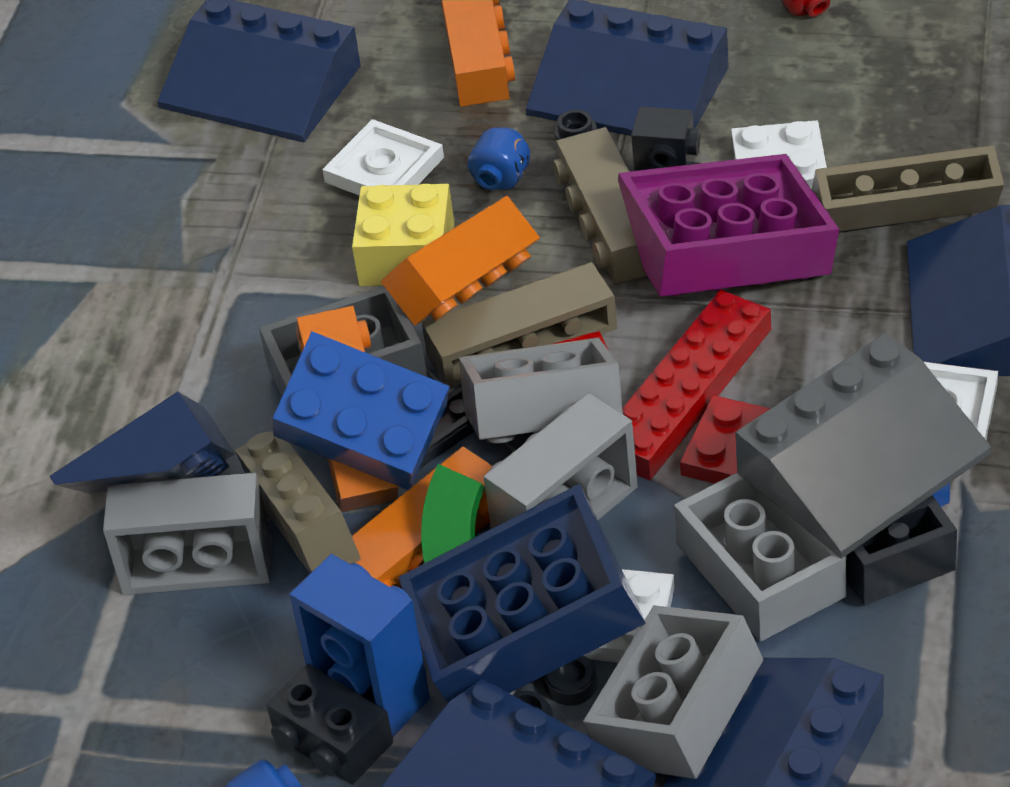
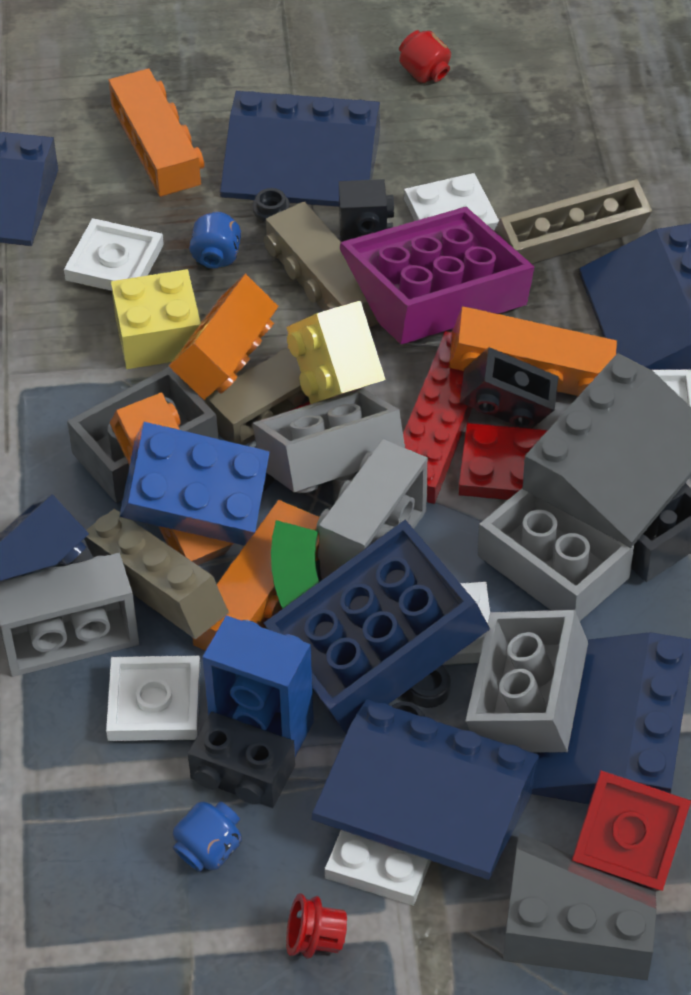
camera: 20 degrees left, 5 degrees up
(251, 643) = (153, 698): none -> white plate
(567, 290) = (334, 352): none -> brick
(763, 359) = (509, 389): none -> black brick
(795, 319) = (560, 351): none -> orange brick

